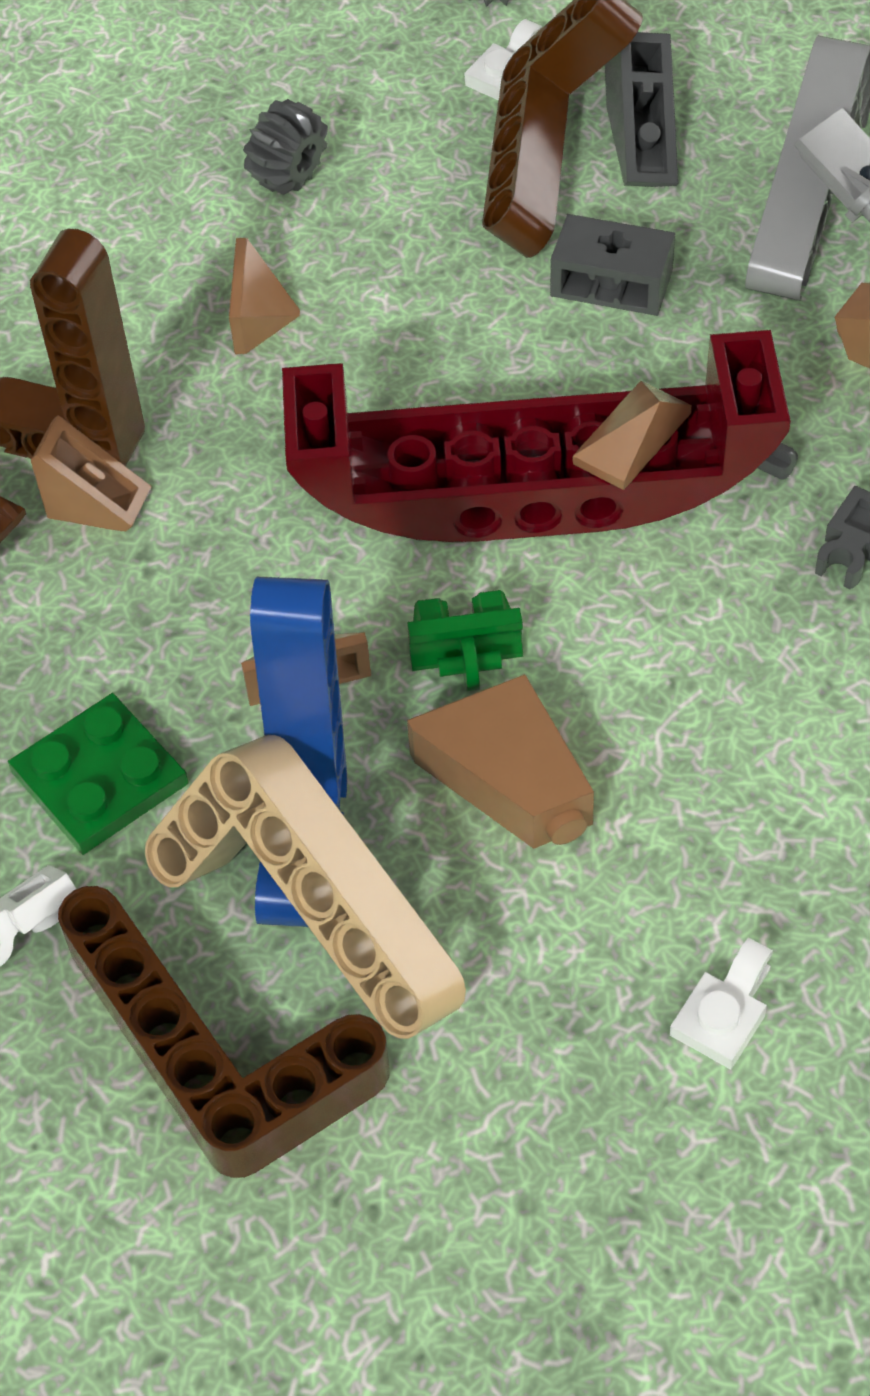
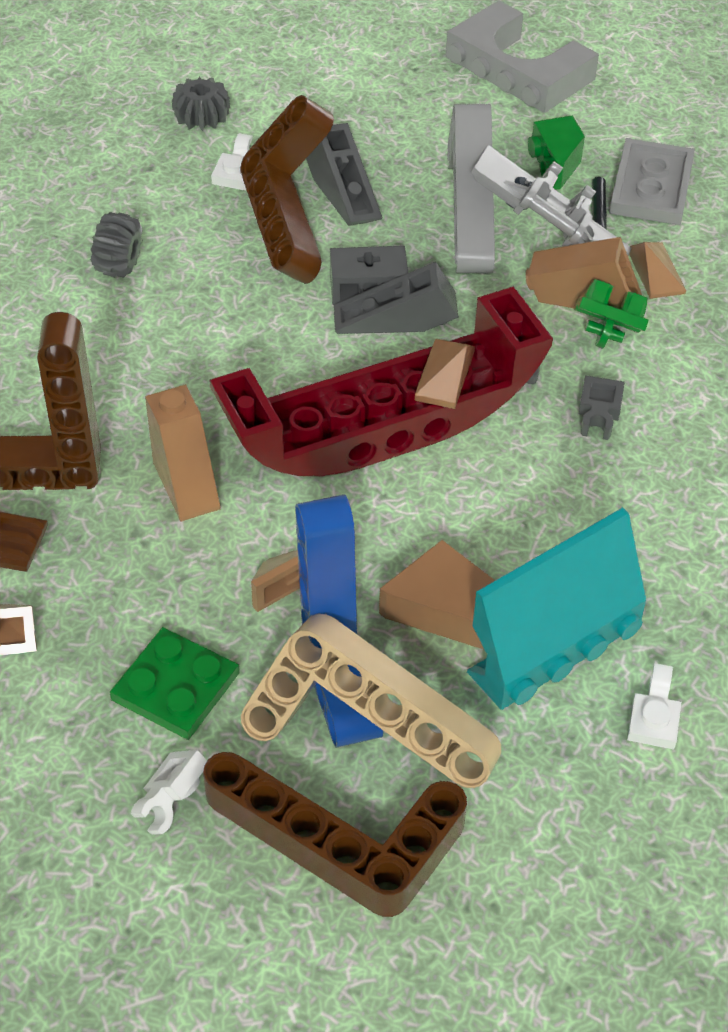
camera: 25 degrees left, 5 degrees down
(84, 481) = (79, 494): medium nougat slope -> none
(230, 459) = (181, 452): none -> medium nougat slope
(257, 300) = (140, 348): medium nougat slope -> none
(466, 641) = (389, 532): green hips -> none
(632, 820) = (558, 610): none -> teal piece
(640, 319) = (401, 305): none -> dark grey slope

